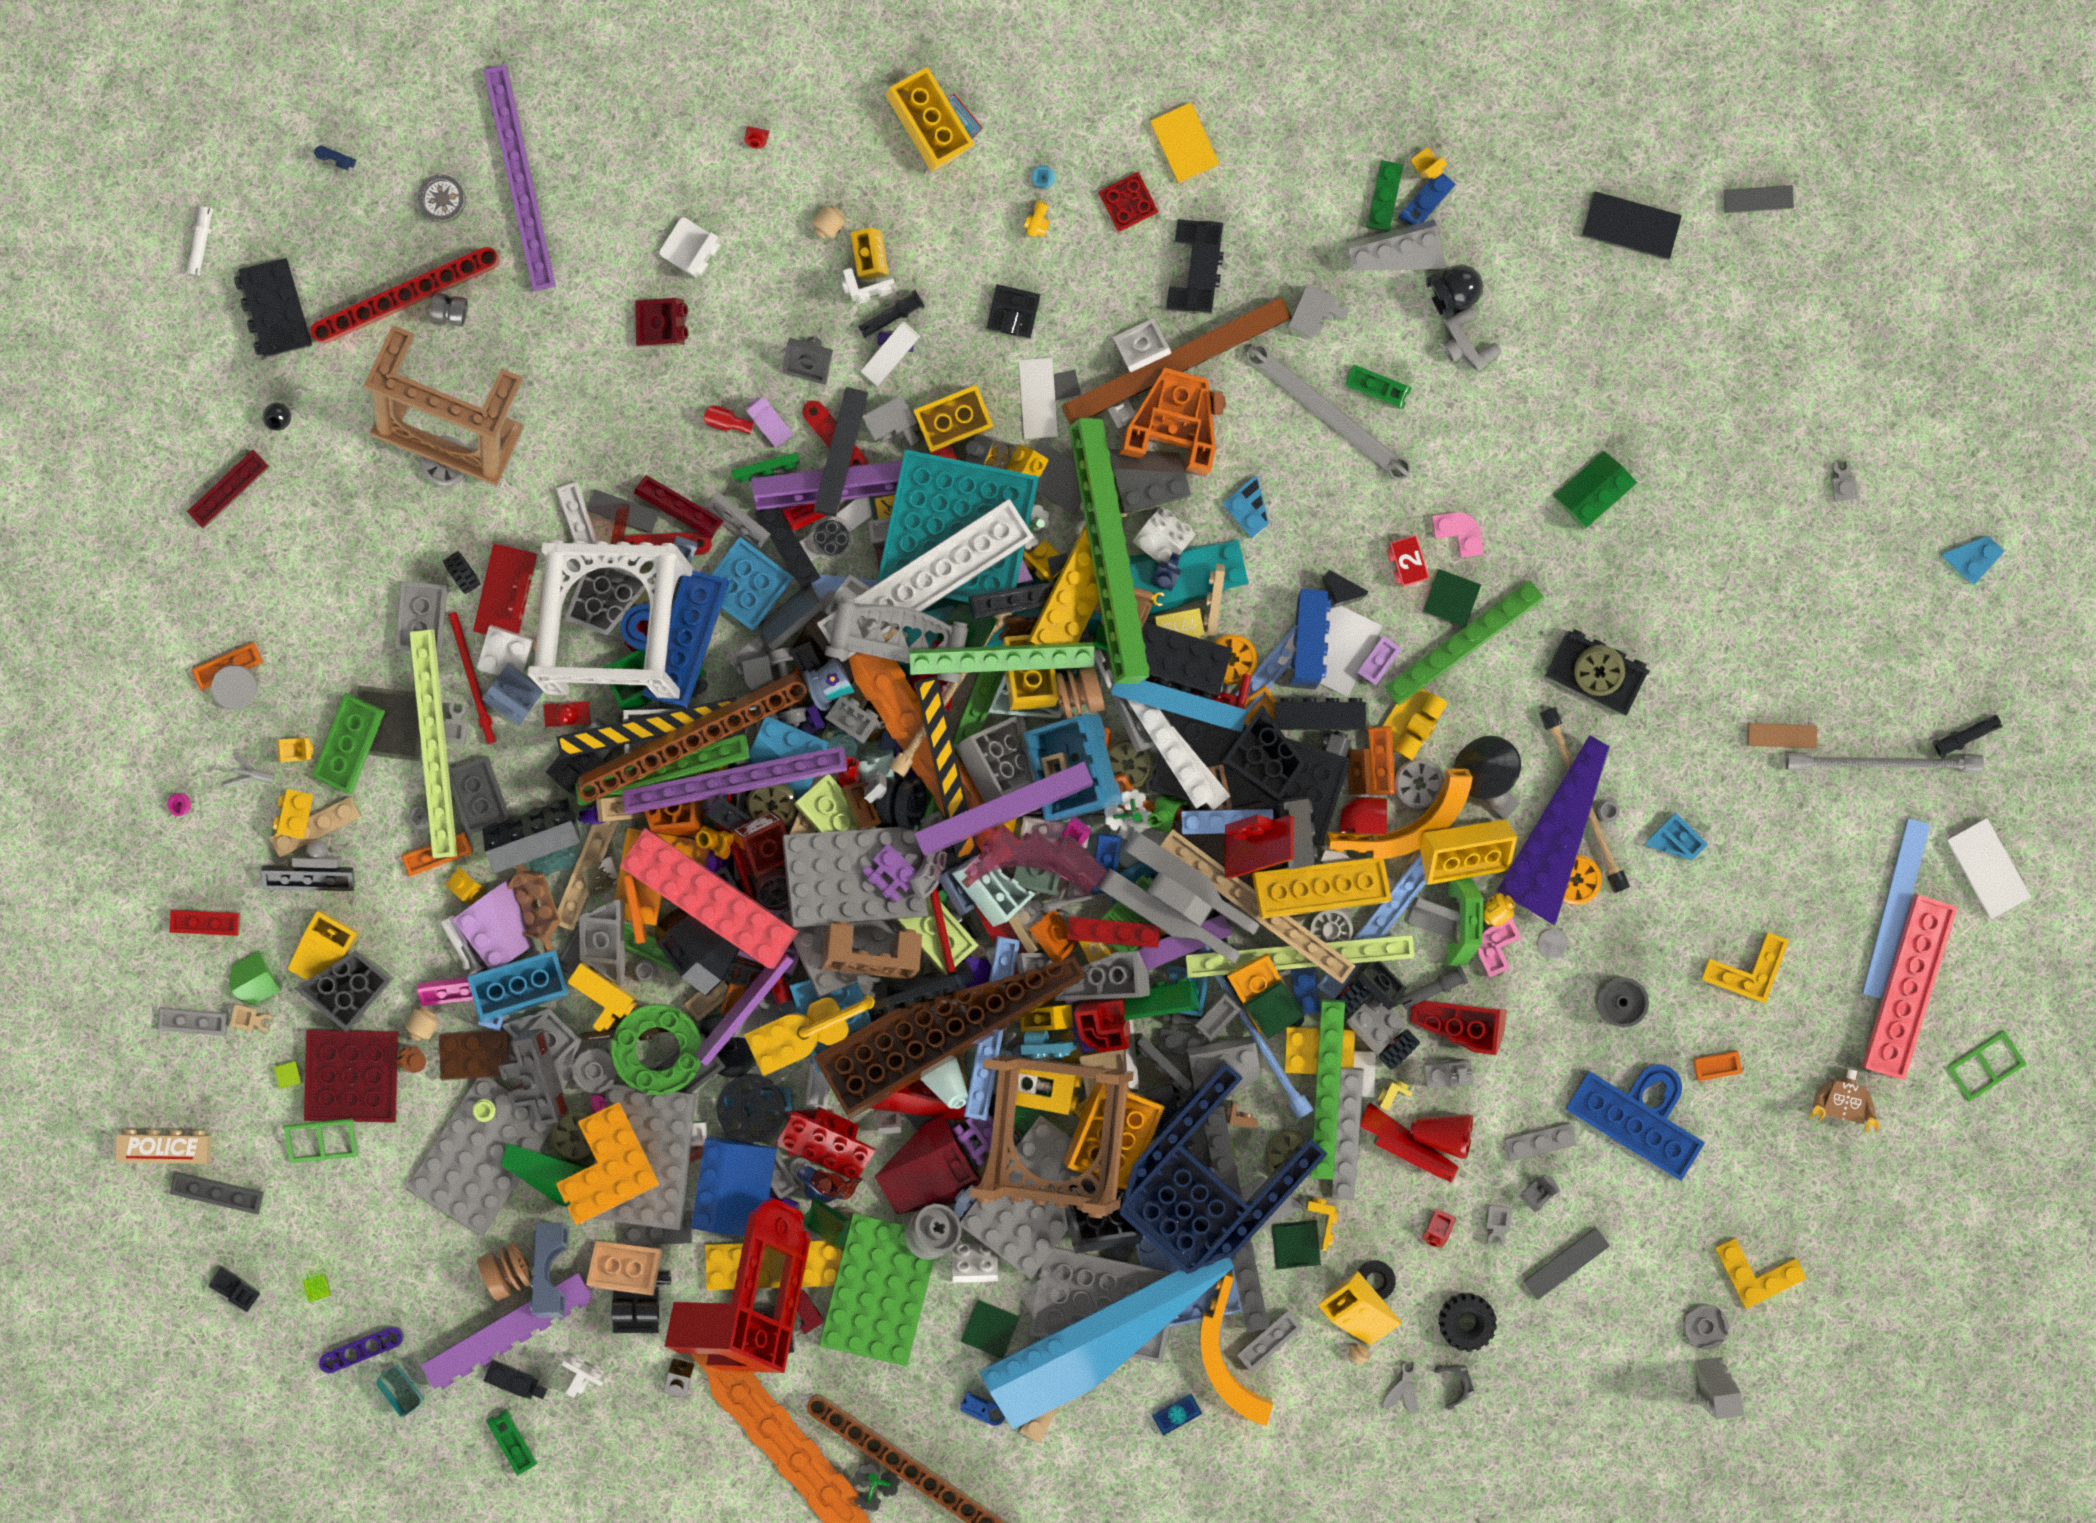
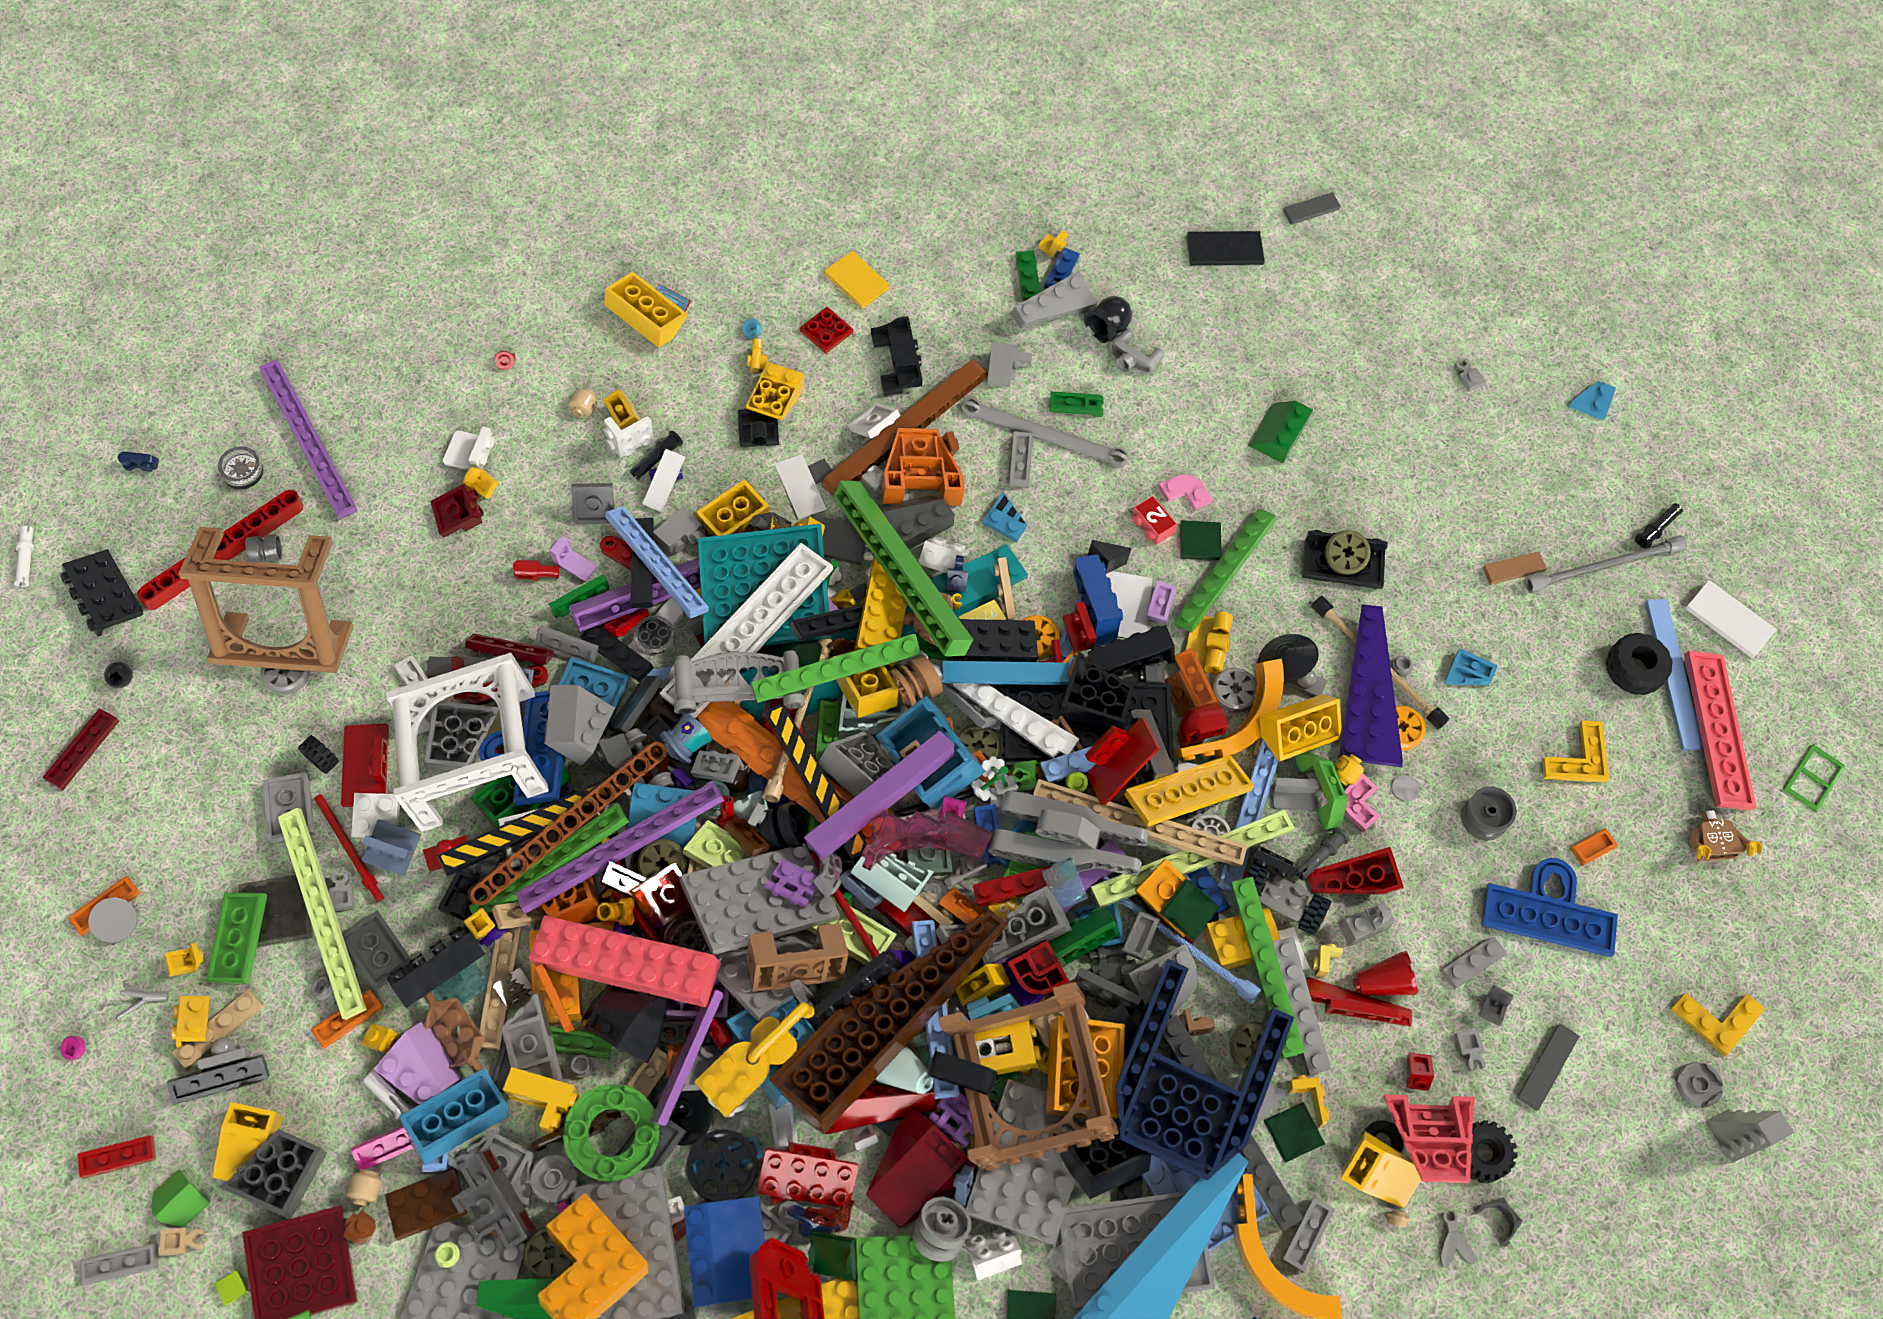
camera: 25 degrees left, 25 degrees down
(581, 811) = (479, 924): none -> yellow slope
(694, 293) = (480, 481): none -> yellow bracket
(724, 626) = (575, 721): none -> light grey wedge
(854, 460) = (657, 562): none -> light blue tile
(993, 1107) = (962, 1073): none -> black beam
(1043, 278) = (776, 391): none -> yellow slope
(1158, 950) = (1065, 883): none -> clear light blue plate
(1210, 843) = (1076, 781): none -> lime tile
(1277, 669) = (1080, 628): none -> red bracket
(1290, 439) = (1021, 459): none -> light grey plate
(1421, 1297) = (1436, 1136): none -> coral wedge
(1881, 889) = (1631, 677): none -> black tyre

